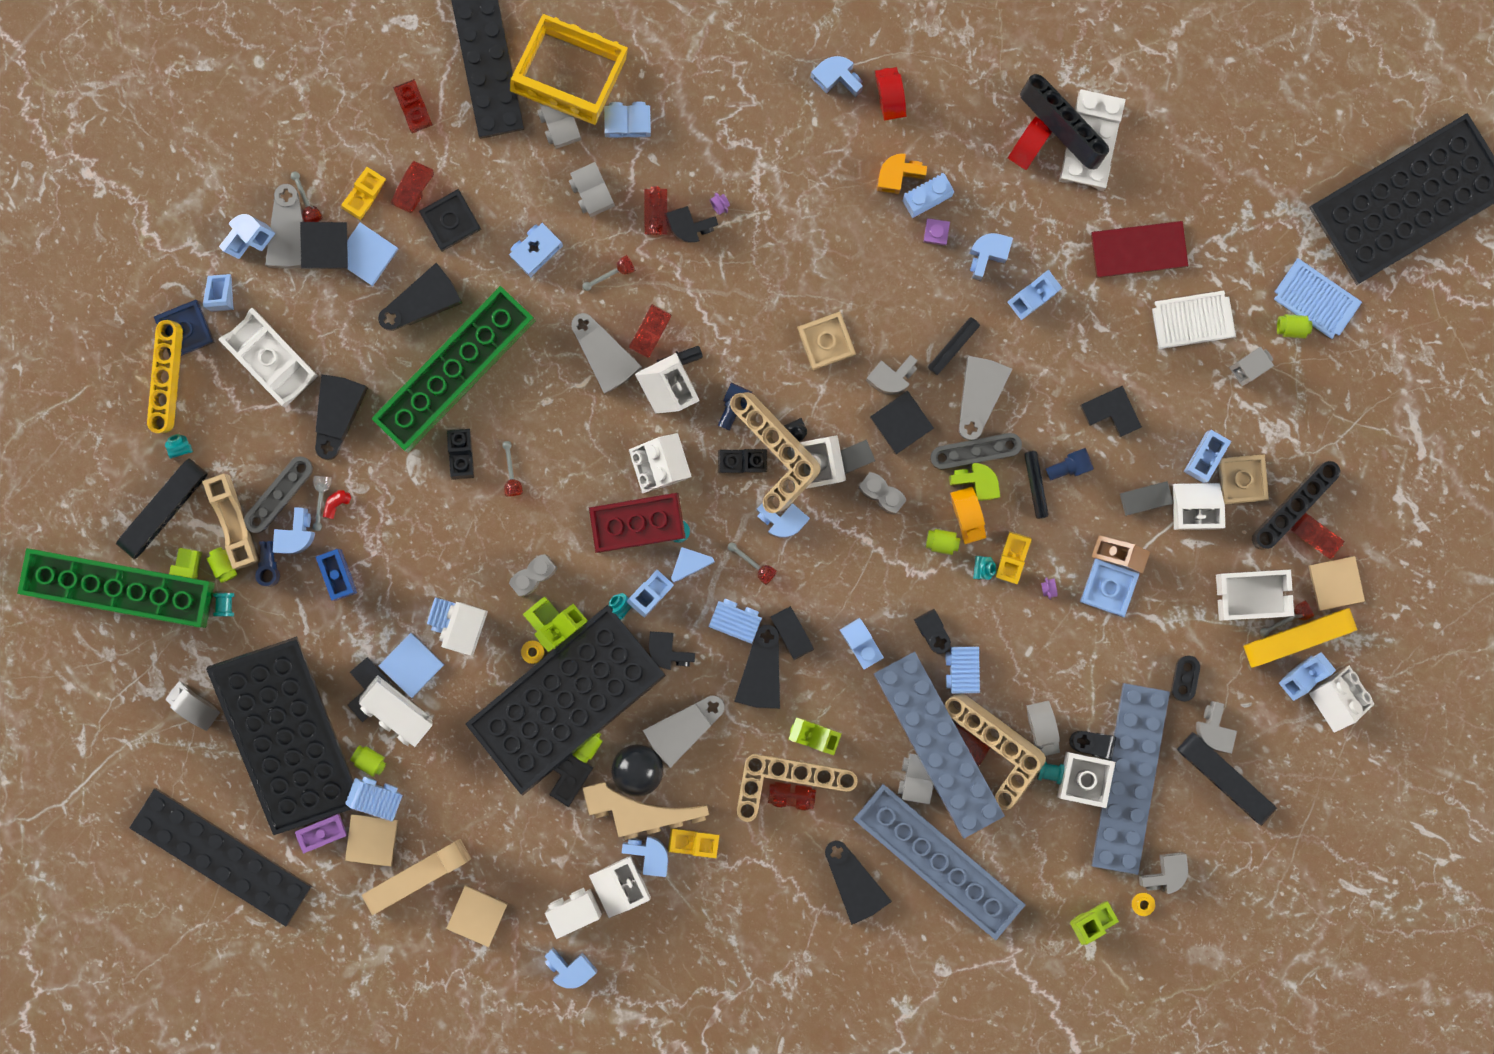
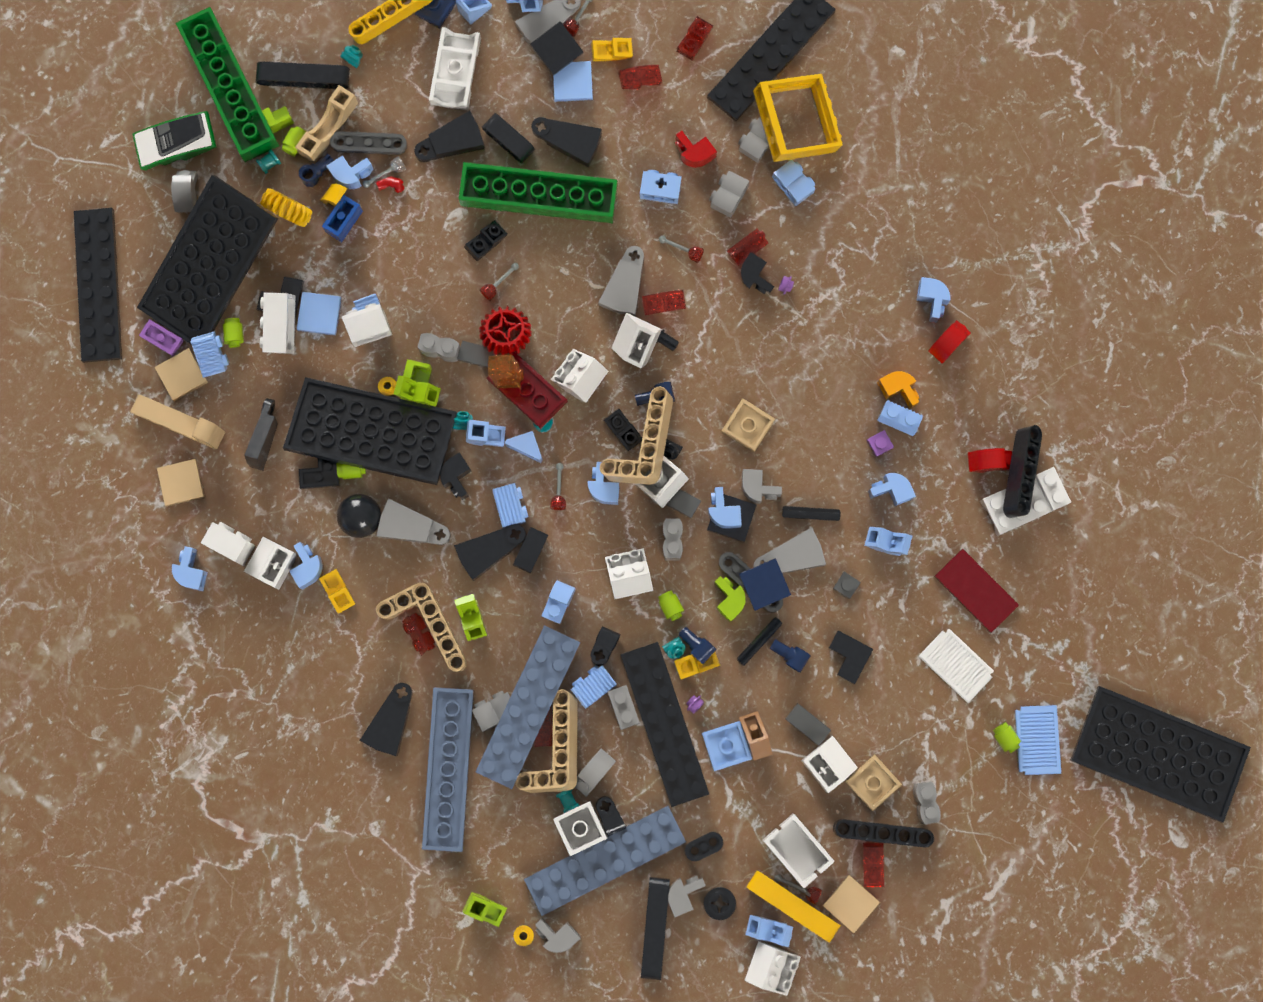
camera: 55 degrees right, 5 degrees down
(133, 679) = (174, 140): none -> slope
(286, 621) = (286, 207): none -> yellow gear
(306, 566) = (333, 194): none -> yellow slope
(376, 357) = (508, 138): none -> black beam
(450, 220) = (637, 118): black tile -> none
(493, 806) = (262, 437): none -> black piece
(530, 191) = (697, 154): none -> red brick
(567, 493) = (491, 335): none -> red gear
(567, 543) = (474, 354): none -> dark grey tile
(607, 530) = (505, 371): none -> clear orange brick
(635, 816) = (326, 537): tan arch -> none
(883, 557) = (629, 573): none -> white slope
(894, 431) = (723, 516): none -> light blue brick
(969, 515) = (702, 609): light orange brick -> none
(989, 439) = (764, 584): none -> dark blue tile
(1003, 543) = (700, 646): none -> dark blue pin
(1004, 656) = (623, 707): none -> light grey brick
(1045, 364) = (846, 585): none -> dark grey plate
(1047, 630) = (664, 724): none -> black plate
(1207, 456) = (869, 744): light blue brick -> none
(1252, 365) = (956, 727): light grey brick -> none
(1258, 701) = (725, 911): none -> black gear
(1293, 441) = (927, 808): none -> light grey brick

